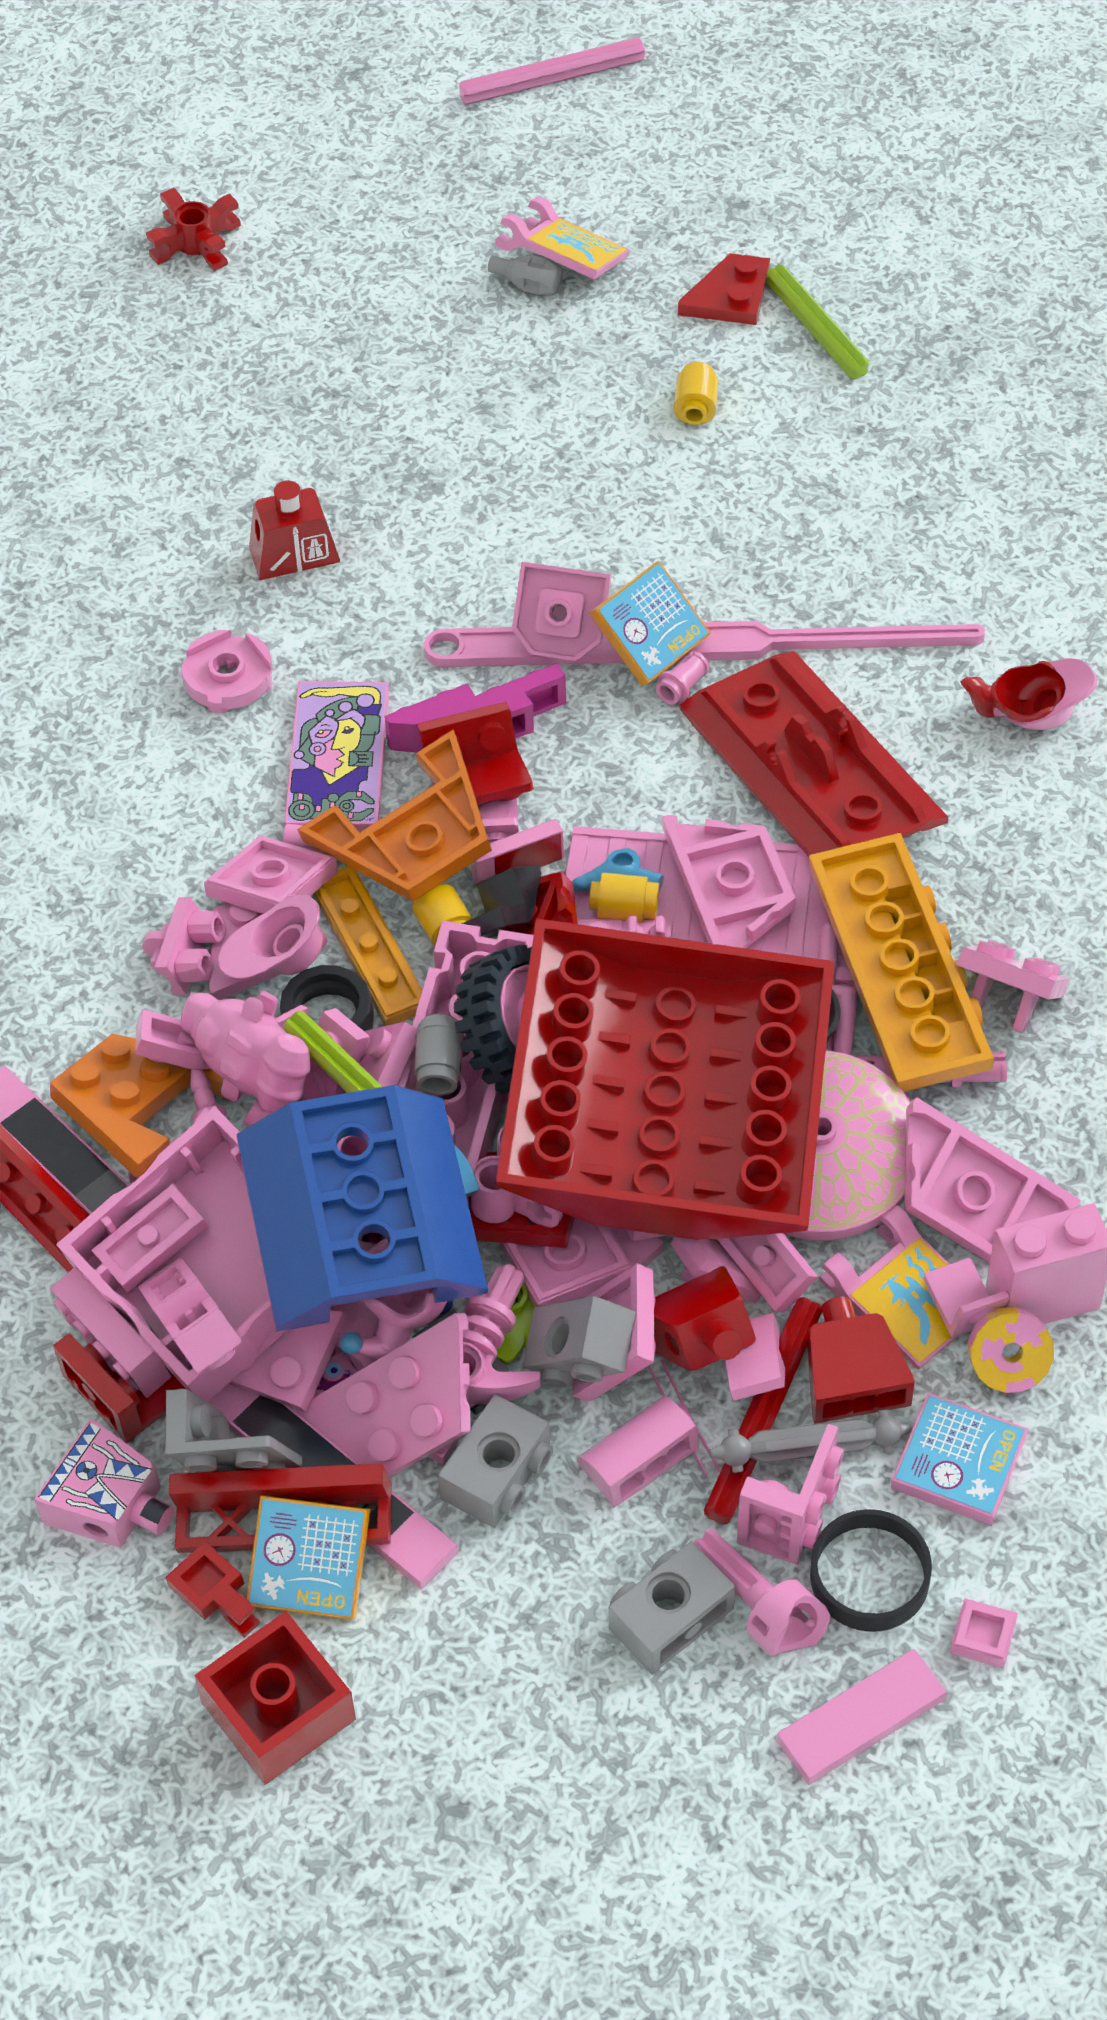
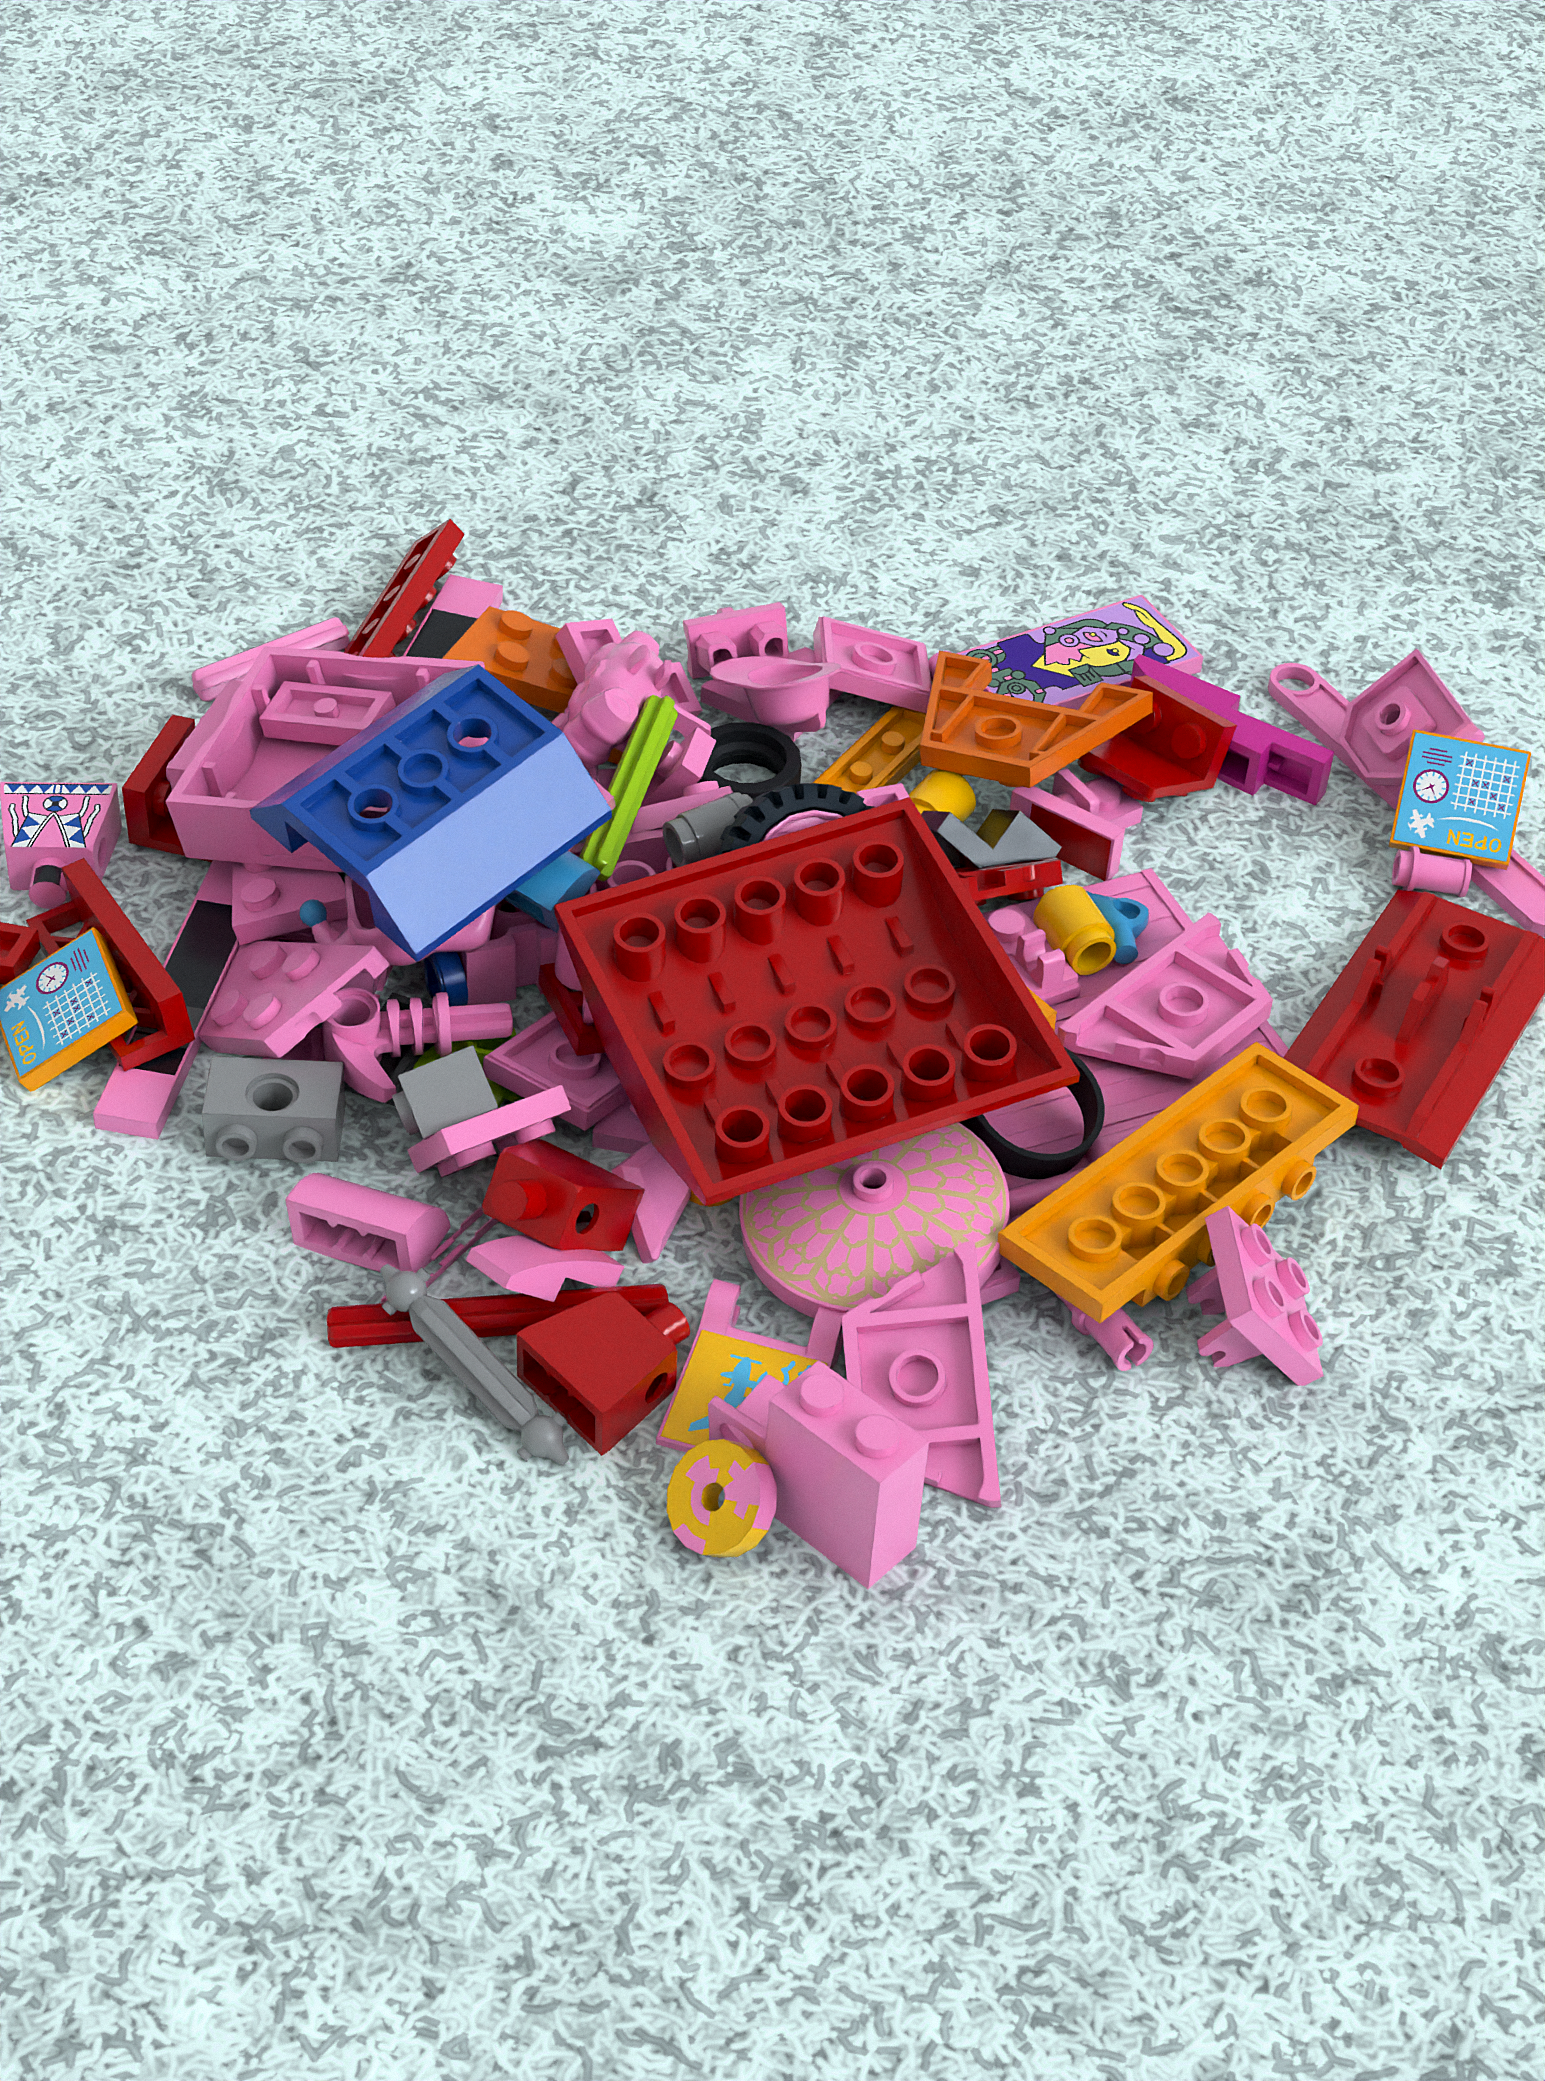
camera: 55 degrees right, 10 degrees down
(190, 1316) = (231, 757): bright pink slope -> none
(201, 1442) = (141, 865): light grey bracket -> none
(231, 690) = (1090, 556): bright pink plate -> none
(290, 532) = (1316, 506): red torso -> none
(661, 1634) = (178, 1324): light grey brick -> none
(772, 1267) = (681, 1238): bright pink plate -> none
(776, 1610) = (221, 1415): bright pink piece -> none
(787, 1522) = (379, 1371): bright pink bracket -> none
(861, 1716) = (145, 1559): bright pink tile -> none
(880, 1520) = (337, 1433): black tyre -> none
(959, 1458) = (553, 1523): medium azure tile -> none
(983, 1633) = (326, 1636): bright pink tile -> none

